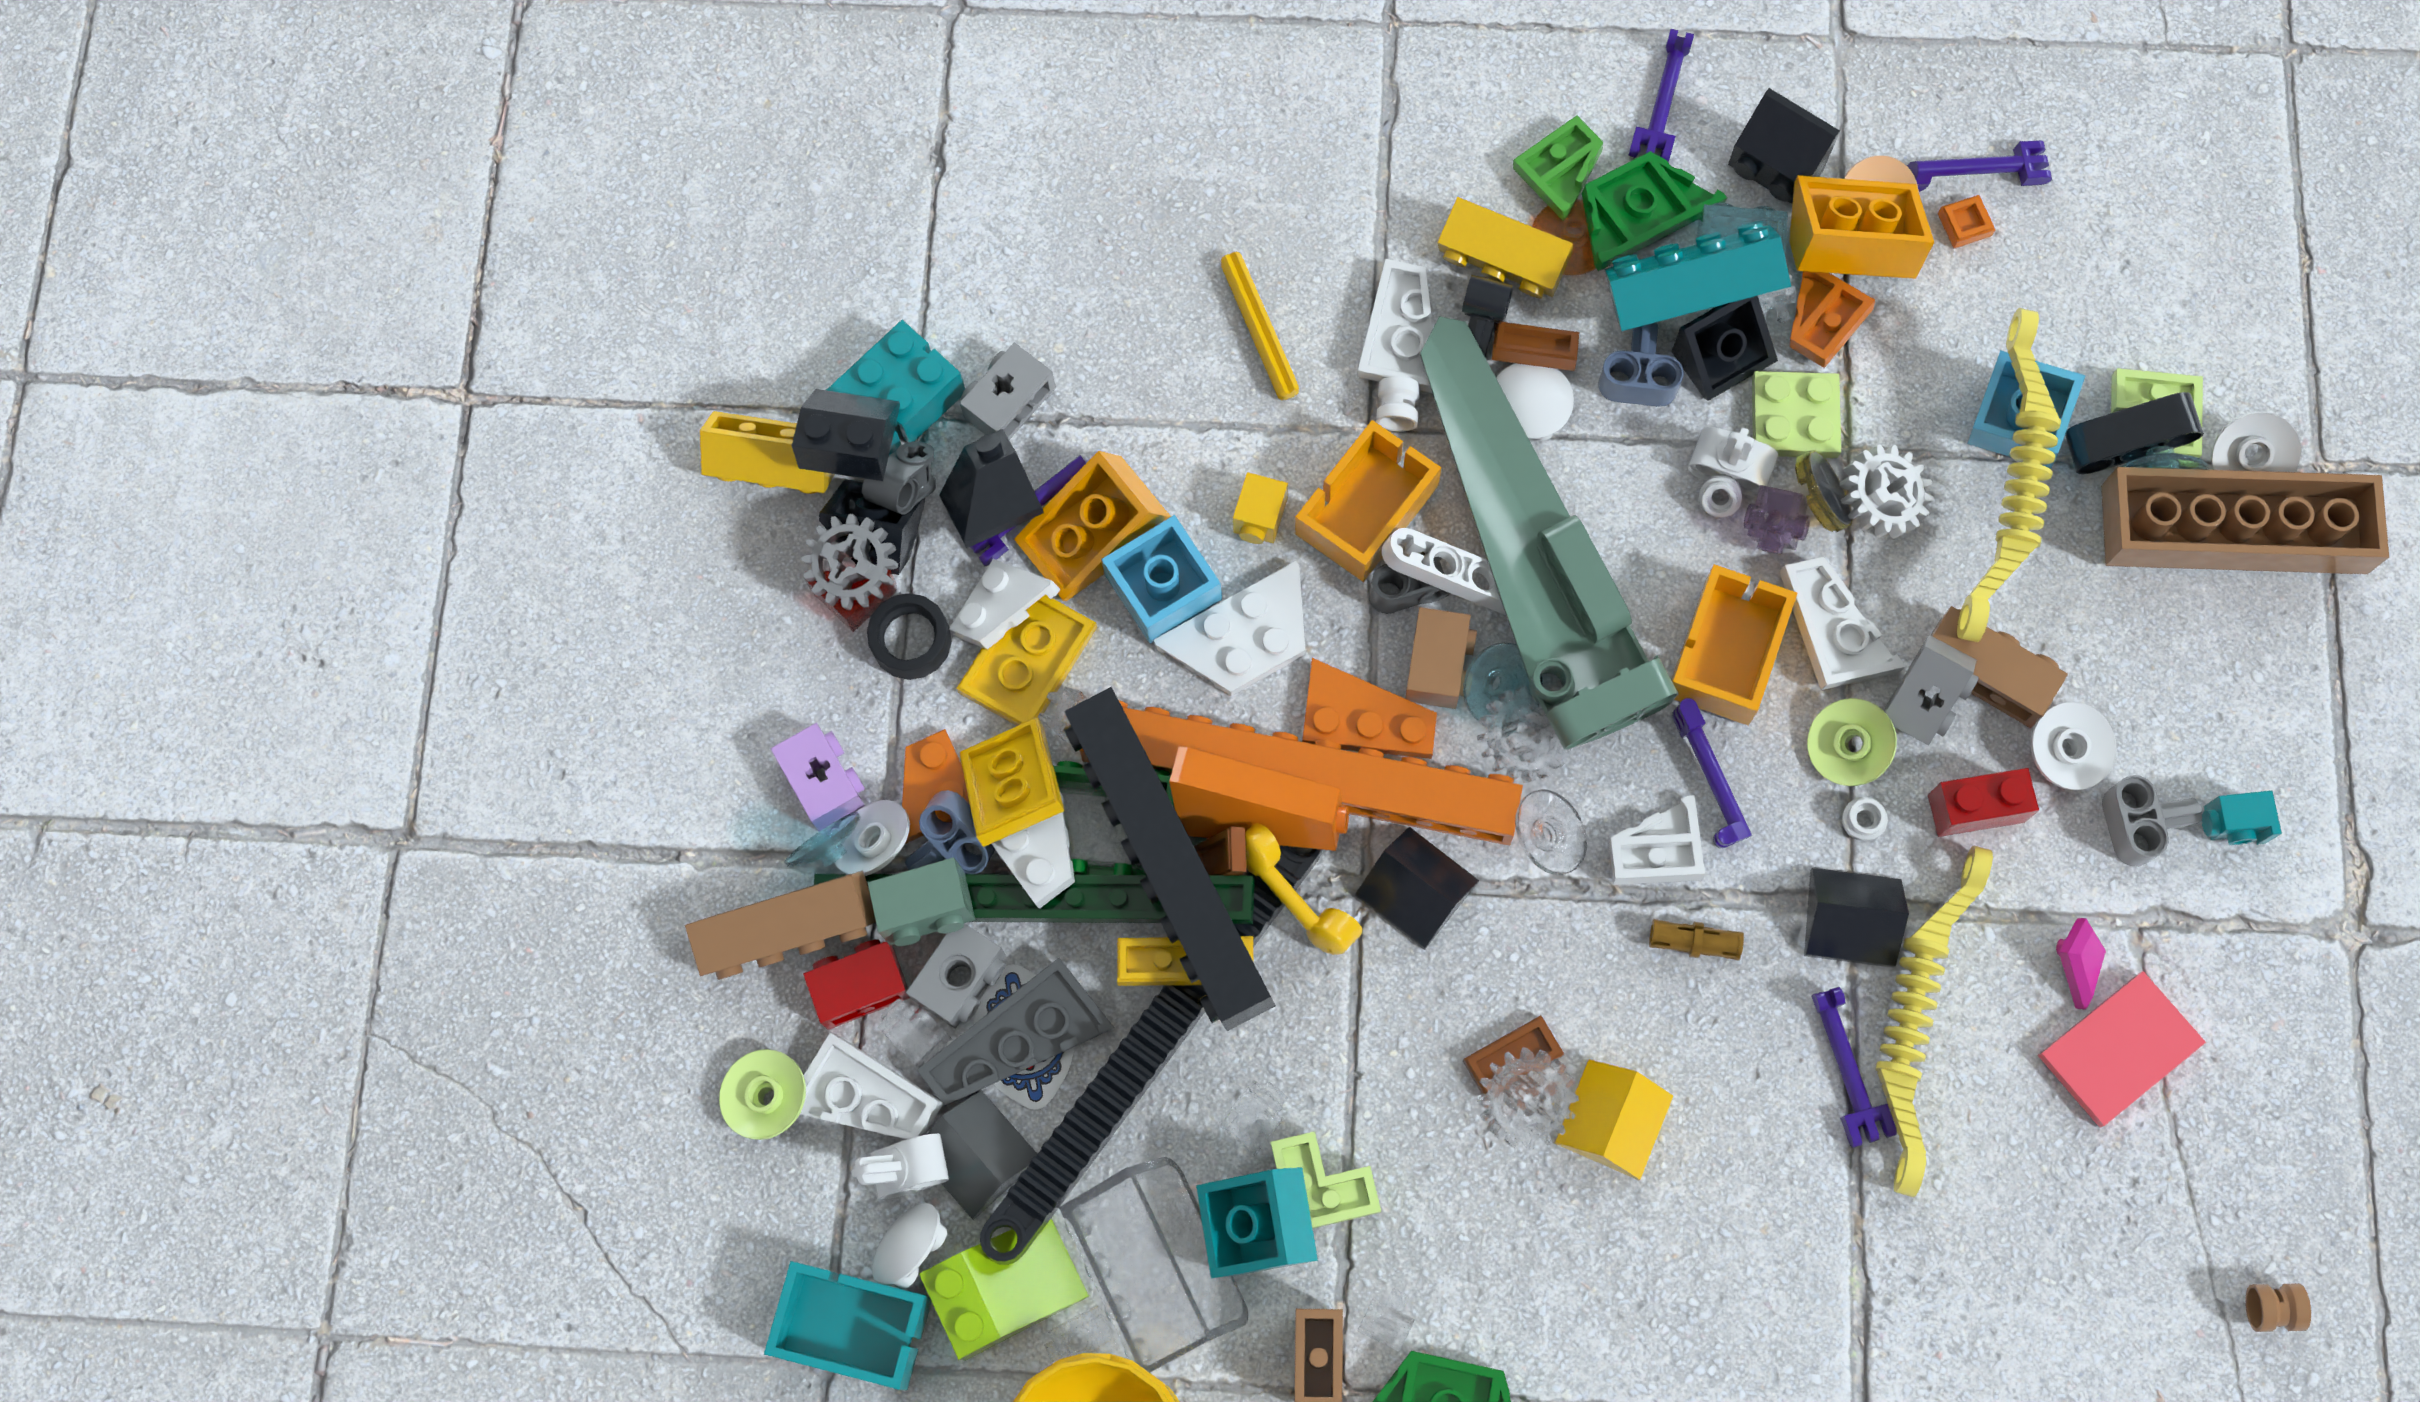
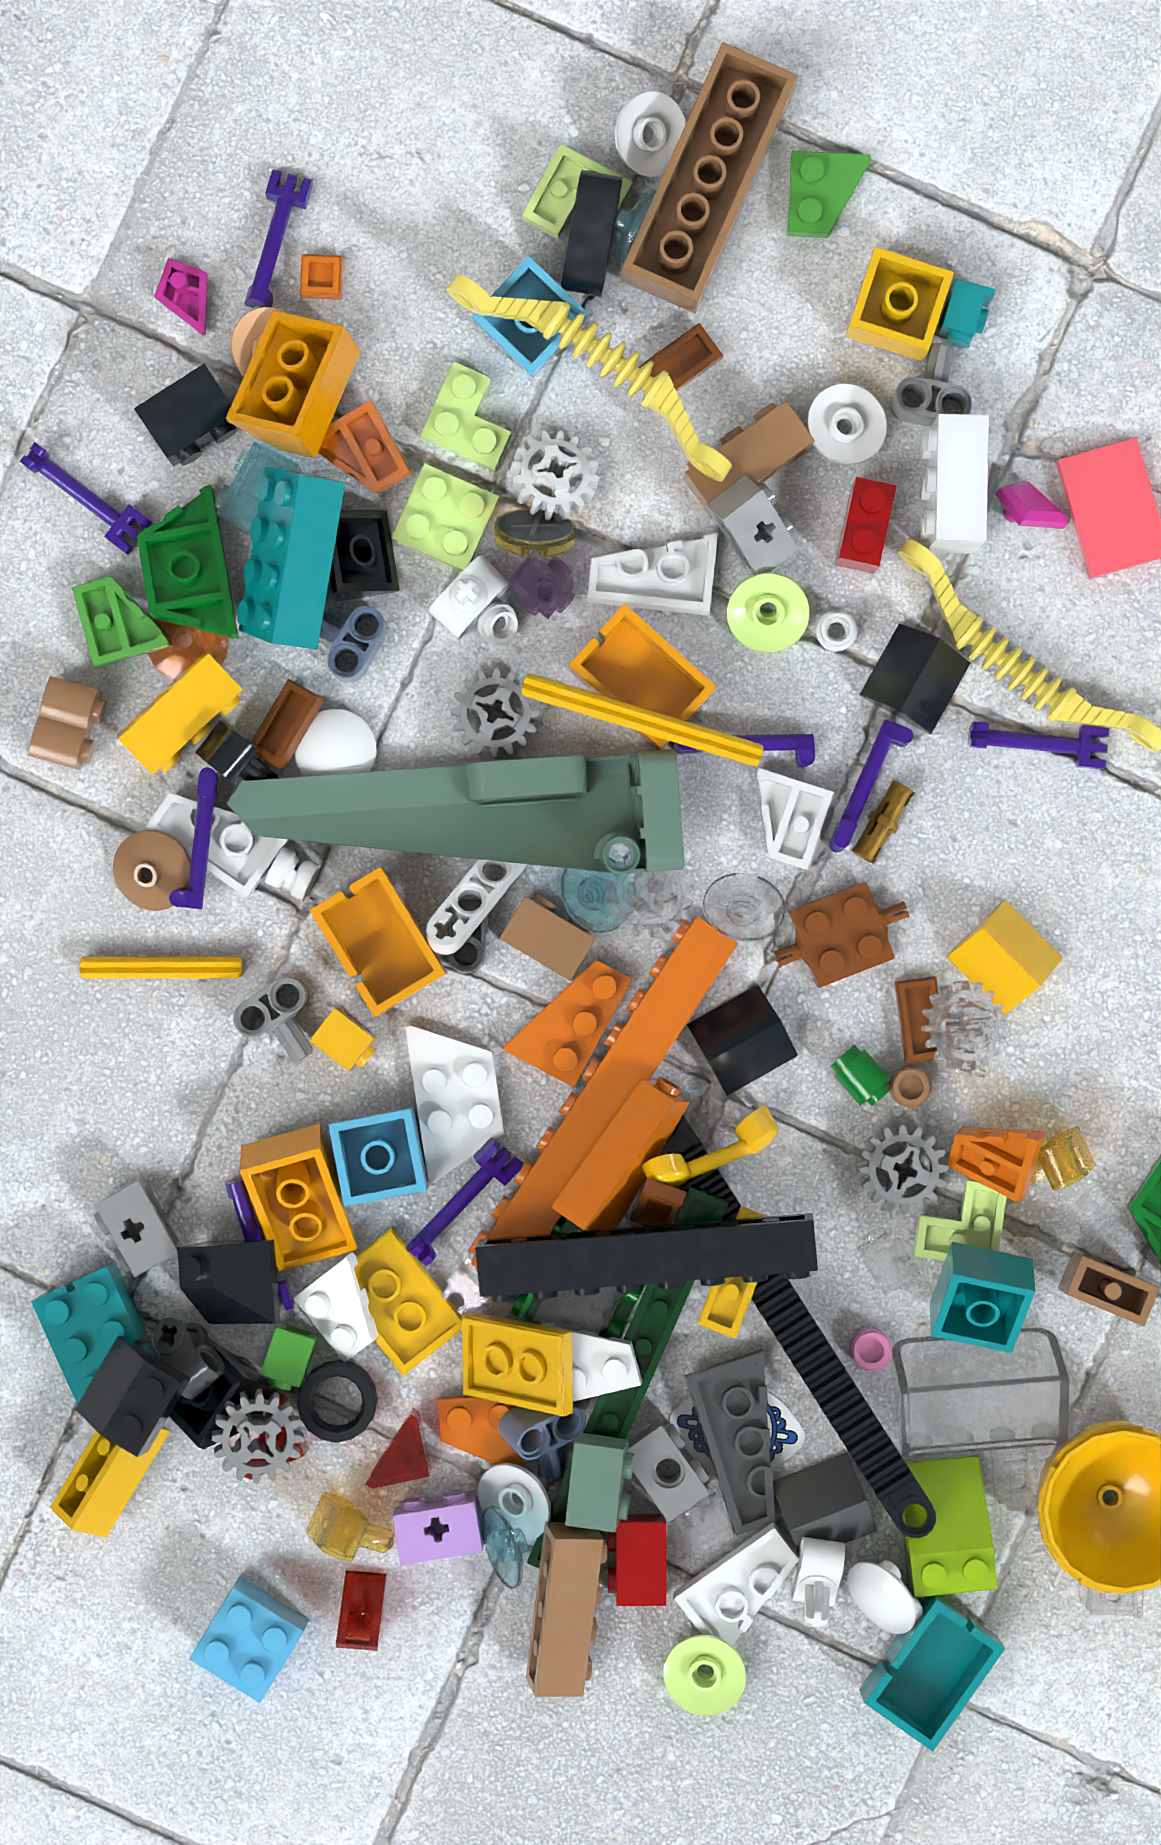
camera: 75 degrees left, 15 degrees up
(648, 640) = (249, 1639): none -> medium azure brick
(711, 735) = (361, 1611): none -> clear red slope
(787, 682) = (342, 1528): none -> clear yellow beam
(880, 716) = (404, 1457): none -> clear red slope
(936, 573) = (288, 1356): none -> bright green brick
(1156, 1138) = (870, 1349): none -> bright pink tile
(1191, 692) = (490, 1168): none -> dark purple hinge
(1256, 439) = (278, 1017): none -> light grey beam
(1332, 1095) = (911, 1150): none -> light grey gear
(1354, 293) = (162, 856): none -> medium nougat dish
(1406, 1184) = (997, 1158): none -> orange wing
(1428, 1250) = (1063, 1160): none -> clear yellow beam
(1431, 1016) = (861, 1076): none -> green brick
(1440, 1073) = (910, 1086): none -> medium nougat tile
(1445, 297) = (206, 796): none -> dark purple hinge
(1450, 157) = (66, 723): none -> medium nougat brick
(1565, 942) = (841, 934): none -> dark orange plate
(1650, 526) = (487, 730): none -> light grey gear
(1672, 901) = (888, 734): none -> dark purple hinge
(1693, 652) = (642, 720): none -> yellow axle
(1891, 111) = (184, 293): none -> dark pink piece
(1891, 388) = (455, 424): none -> yellowish green plate
(2057, 574) = (686, 357): none -> dark orange tile
(2069, 868) = (955, 483): none -> white brick
(2217, 747) = (899, 304): none -> yellow brick
(2287, 636) = (821, 189): none -> bright green wing

